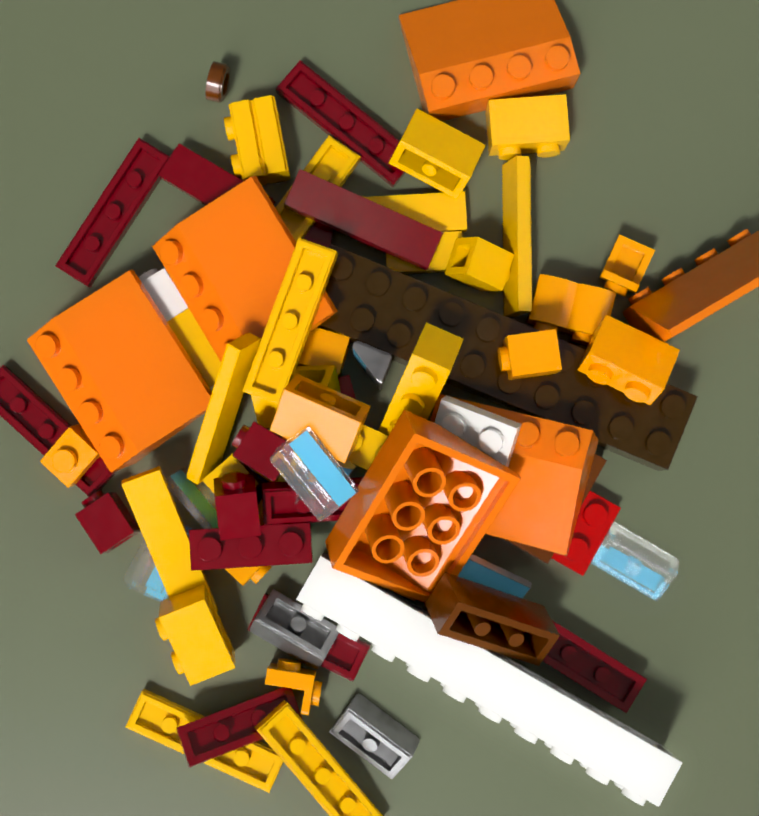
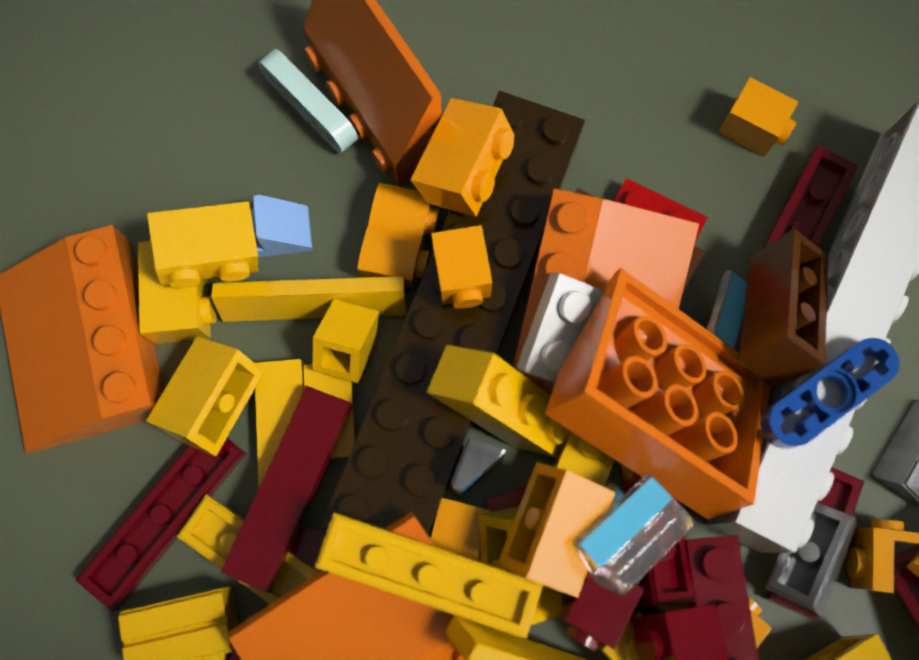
camera: 90 degrees left, 10 degrees down
(442, 659) = (853, 393): none -> blue beam
(558, 148) = (203, 244): none -> yellow brick
(580, 197) = (280, 226): none -> light blue slope
(626, 266) = (346, 176): light orange bracket -> none
(636, 562) = (684, 160): clear slope -> none
(675, 630) = (759, 118): none -> light orange brick
(698, 232) = (308, 101): none -> light aqua beam

